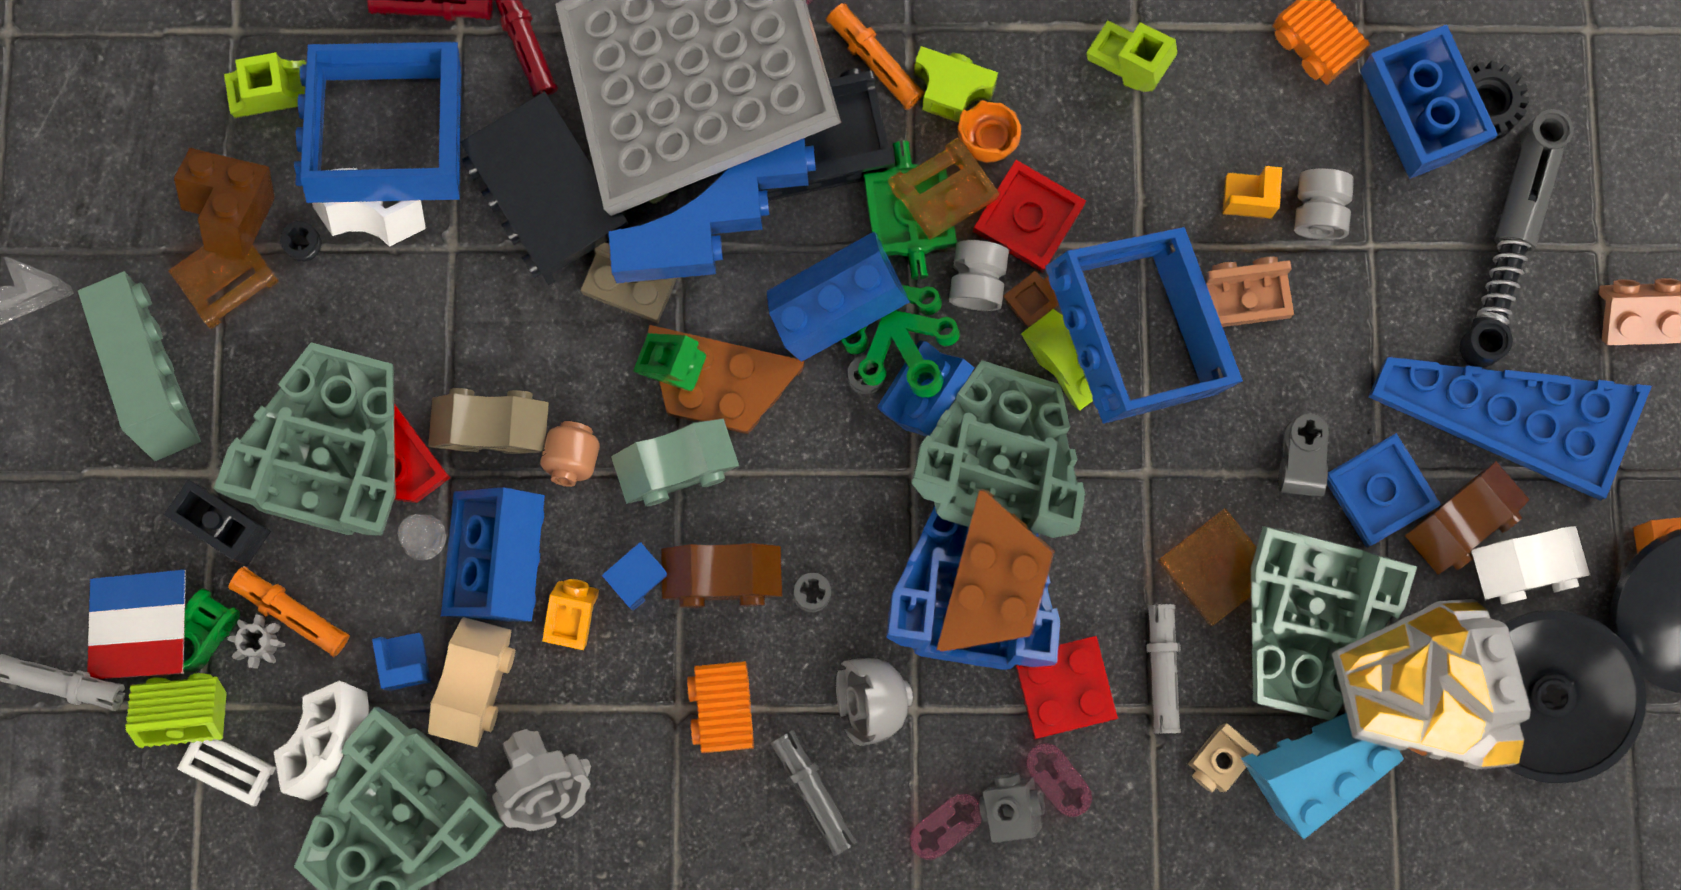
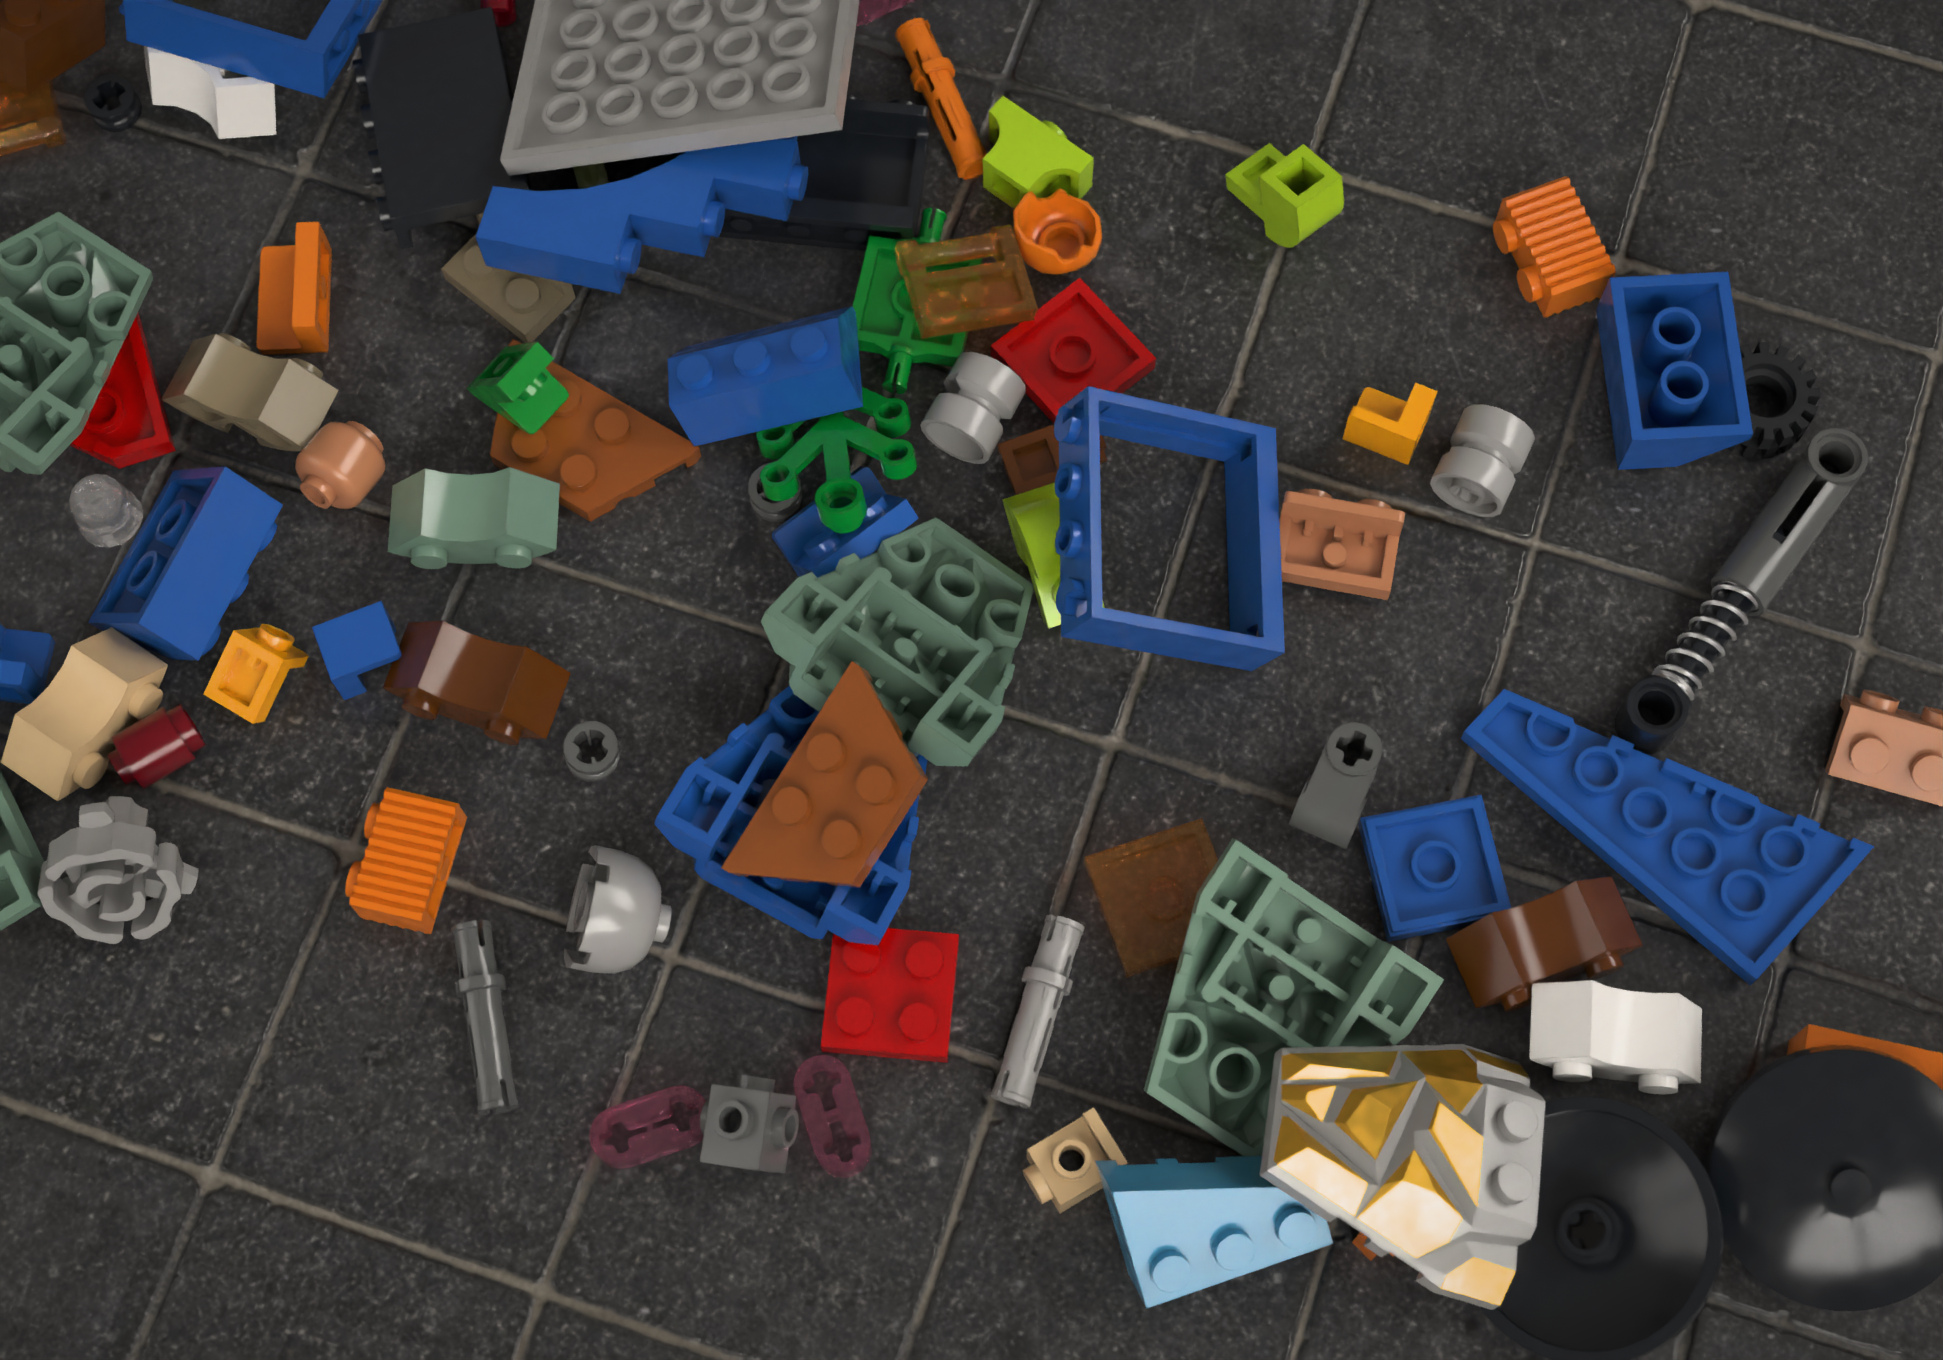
camera: 20 degrees right, 10 degrees down
(485, 341) = (295, 294): none -> orange panel
(525, 687) = (155, 746): none -> dark red brick

